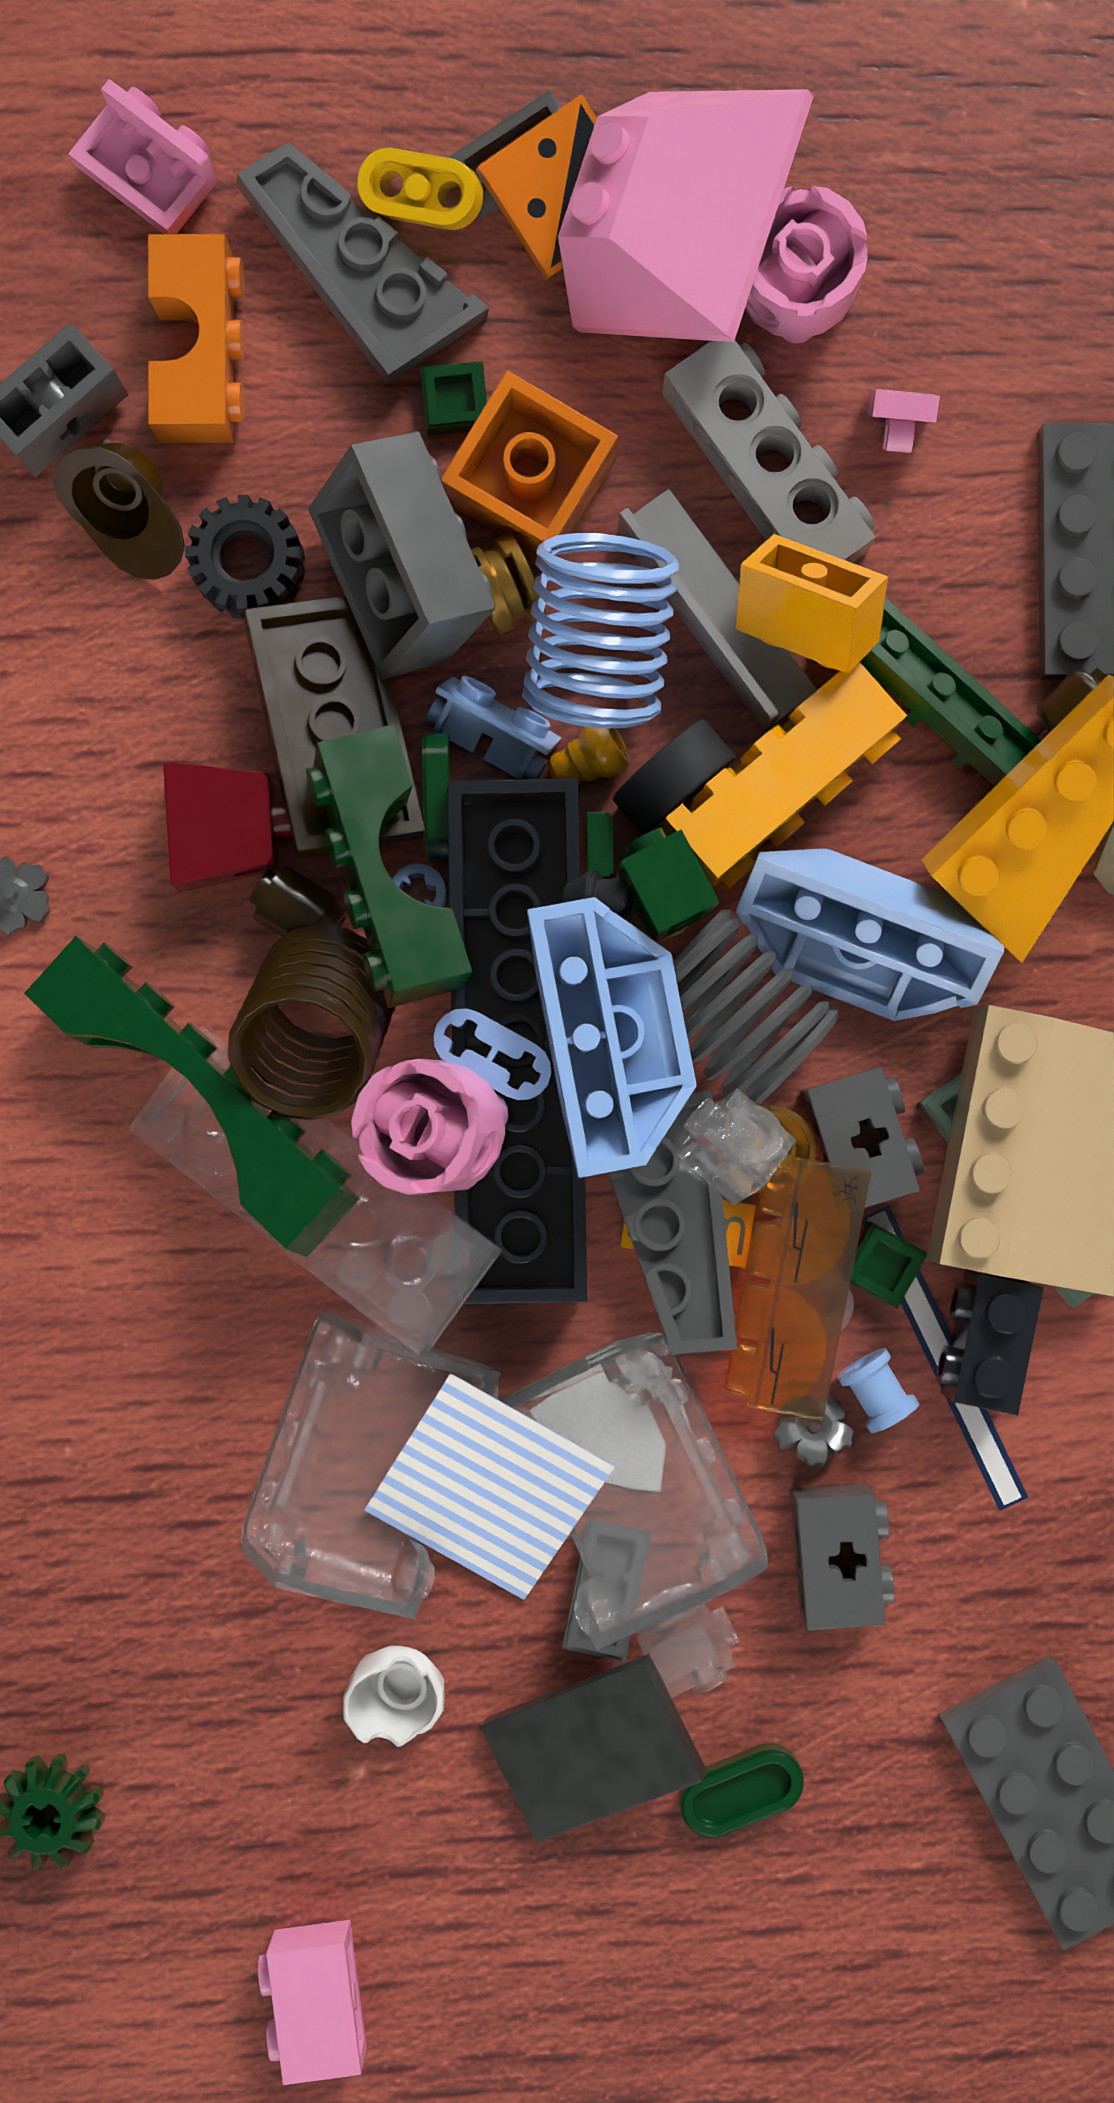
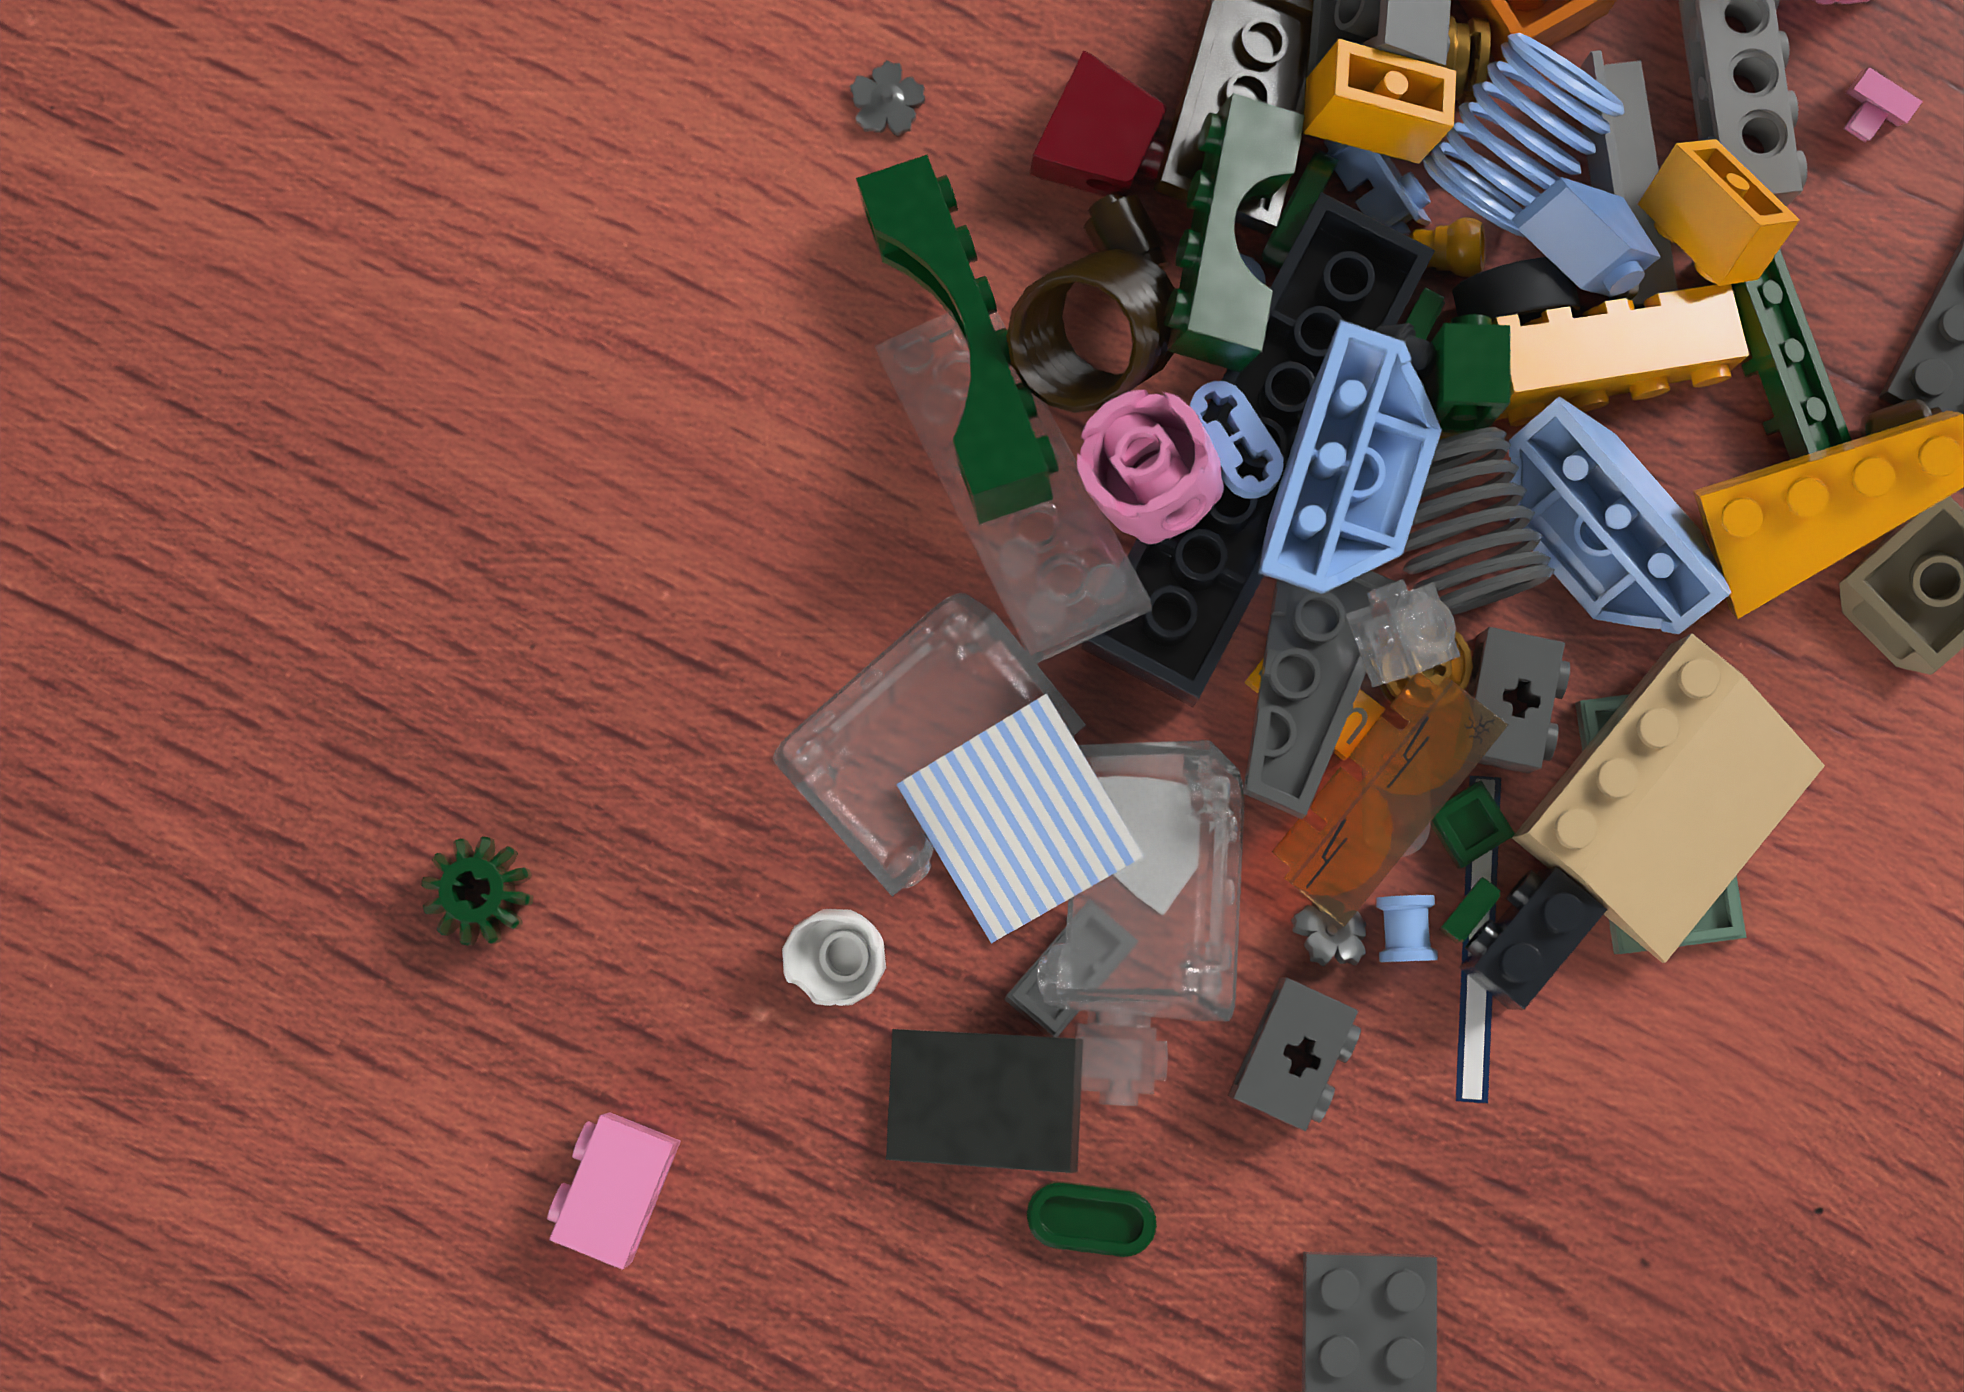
camera: 25 degrees right, 5 degrees down
(454, 672) = (1379, 101): none -> light orange brick
(708, 695) = (1588, 236): none -> medium blue slope
(924, 1346) = (1470, 910): none -> dark green tile

